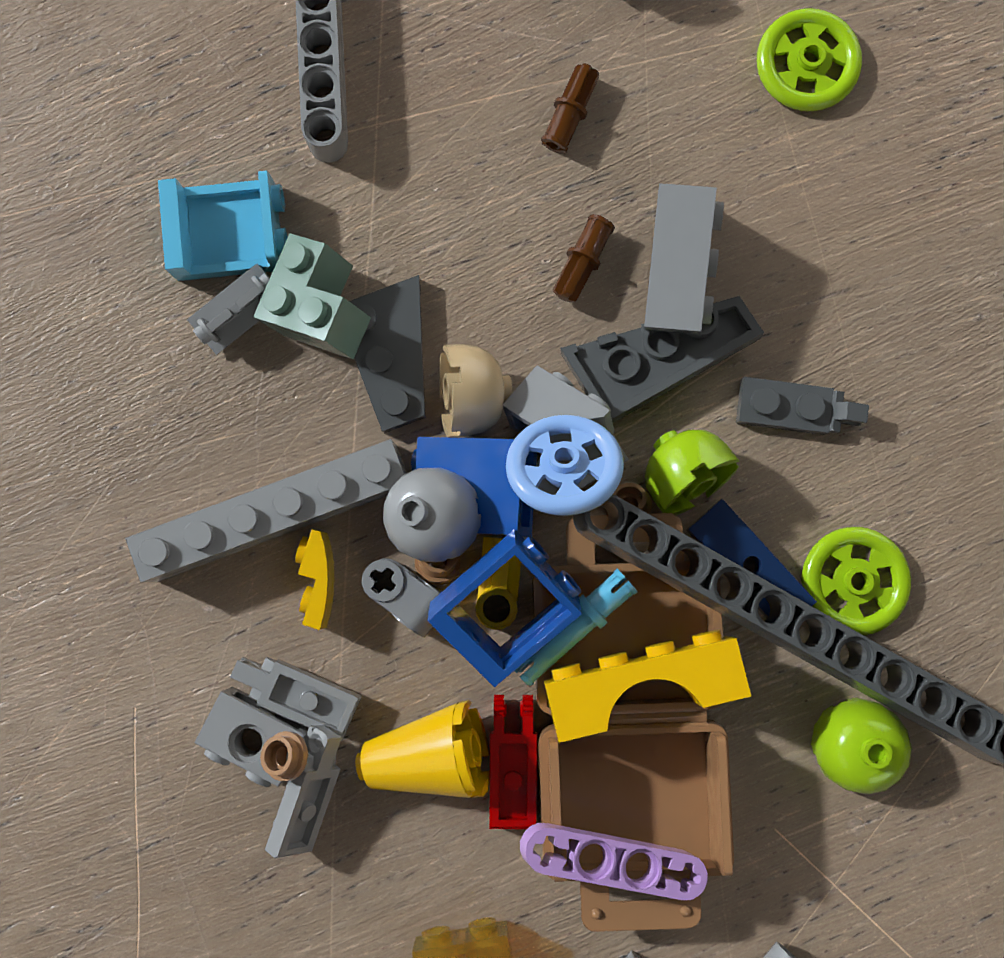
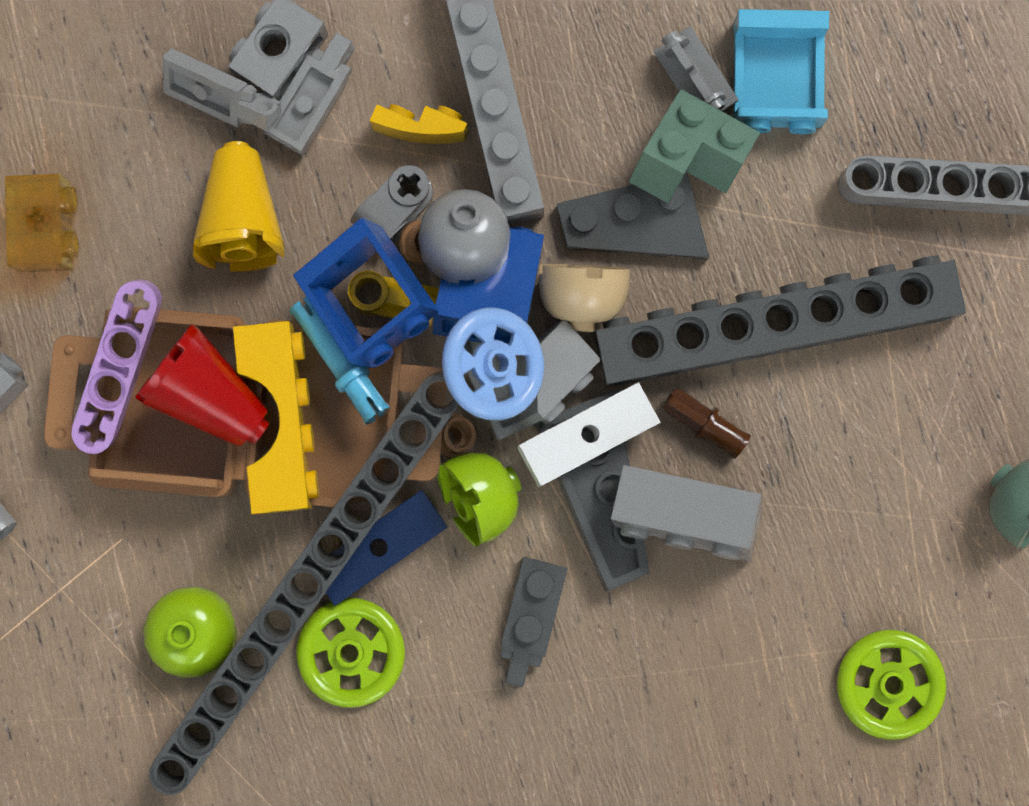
camera: 100 degrees right, 0 degrees up
(274, 756) = (255, 74): medium nougat plate -> none
(434, 50) = (938, 302): none -> dark grey brick
(513, 769) = (215, 290): red hinge -> none
(570, 108) = (865, 430): reddish brown axle -> none
(599, 346) = (610, 421): none -> white tile
(628, 765) = (204, 391): none -> red cone

